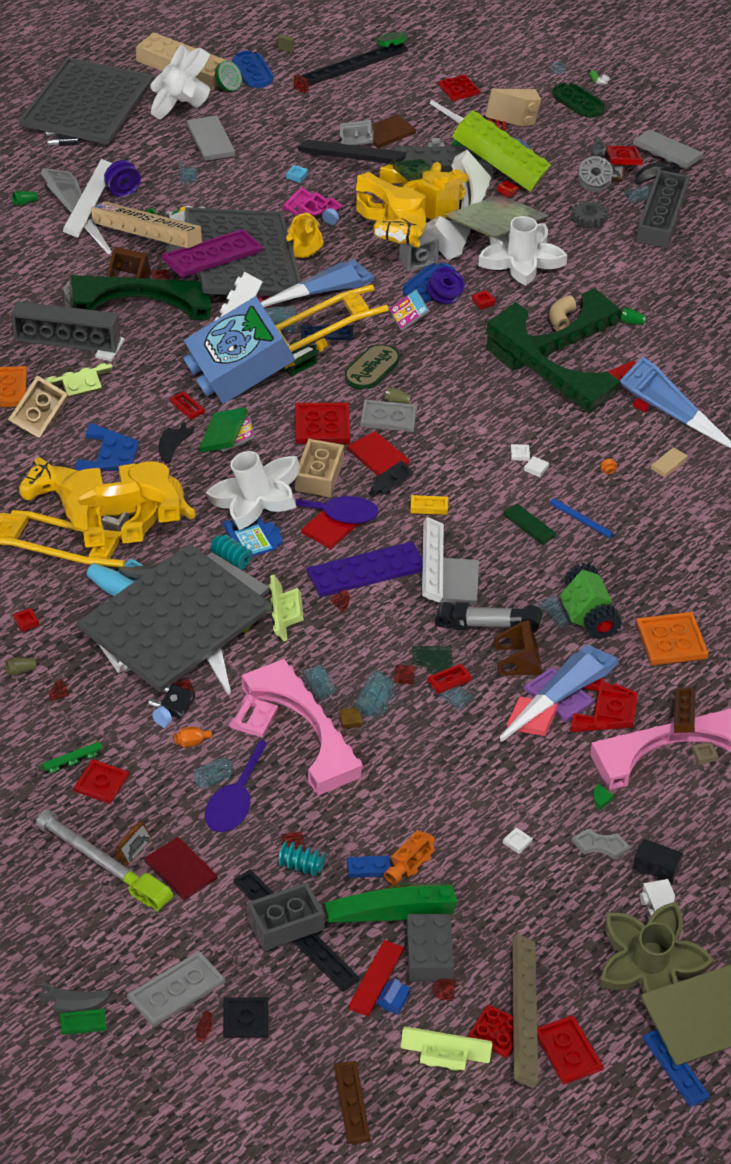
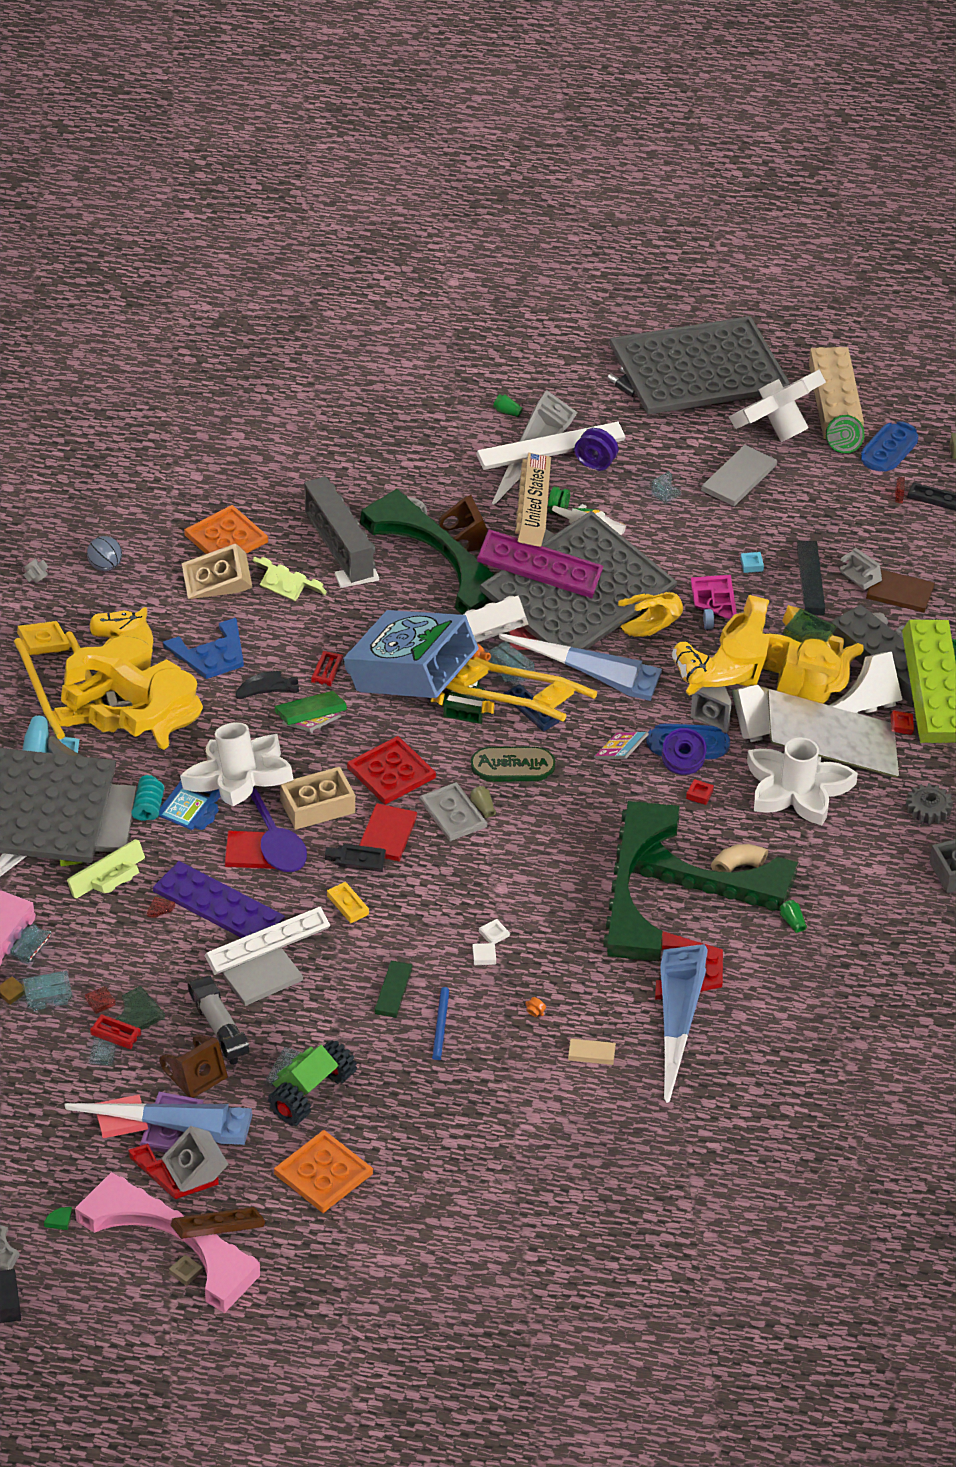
camera: 55 degrees right, 0 degrees up
(618, 693) = (194, 1159): none -> light grey slope

